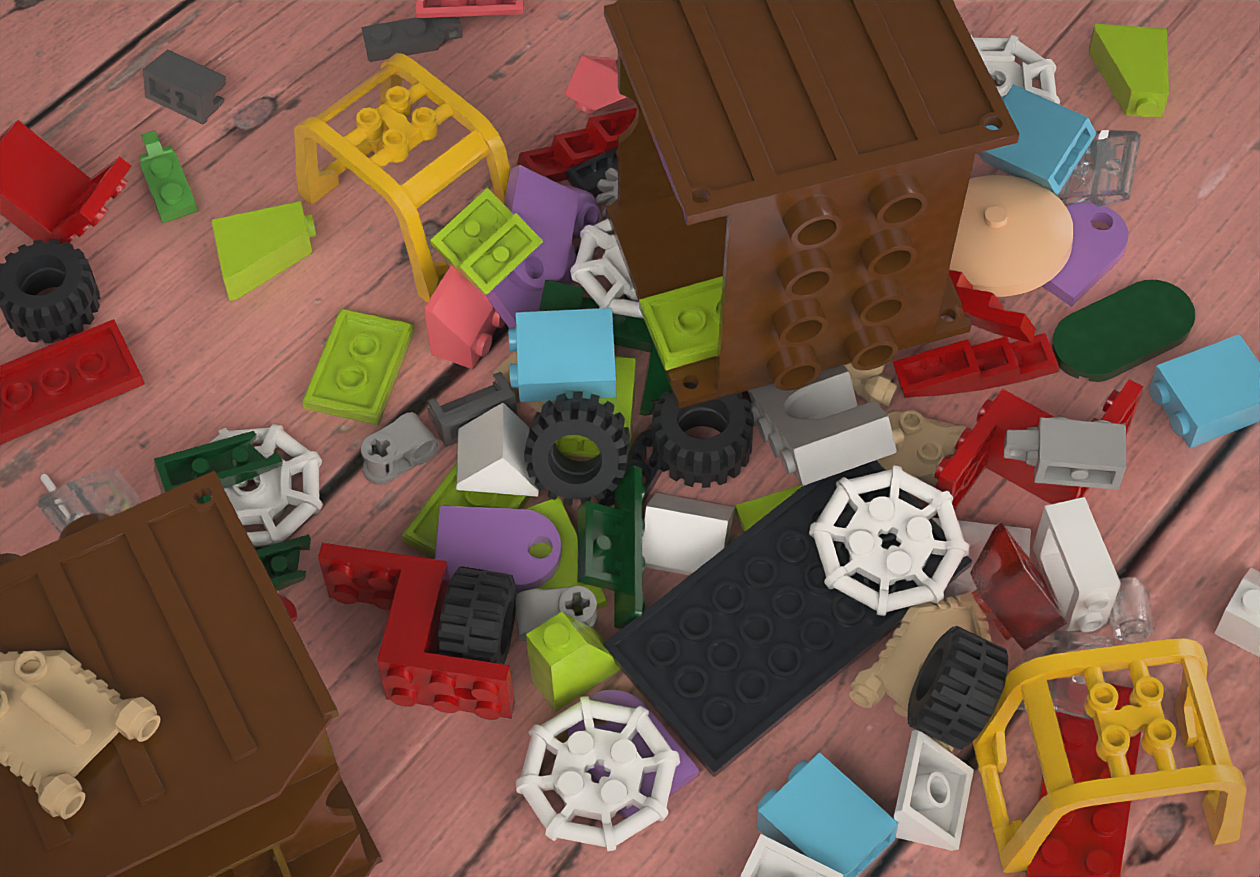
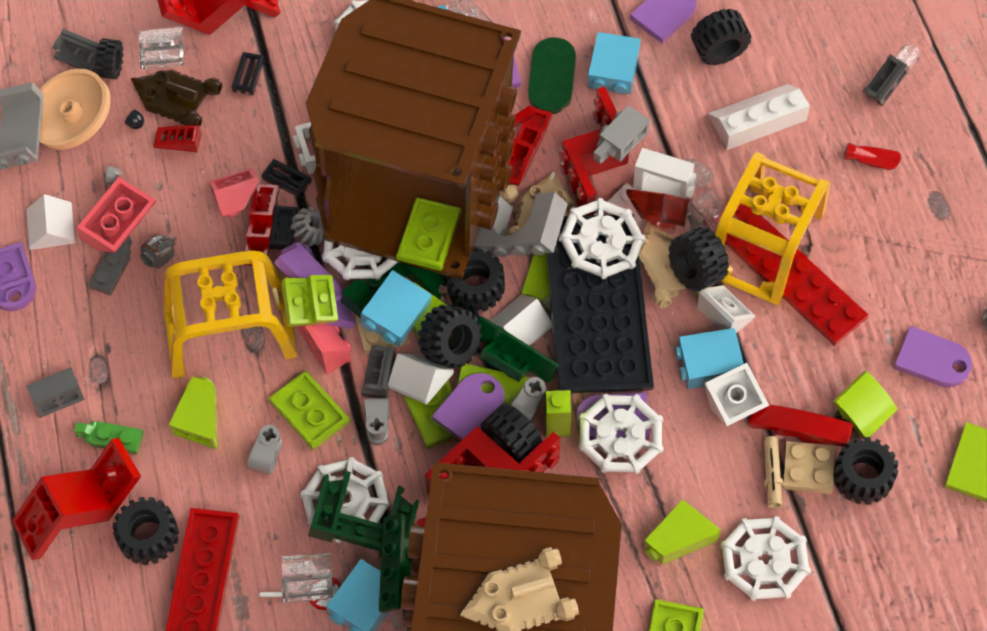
camera: 55 degrees left, 5 degrees up
(255, 351) = (264, 453): none -> light grey piece
(461, 63) = (157, 251): none -> dark grey head

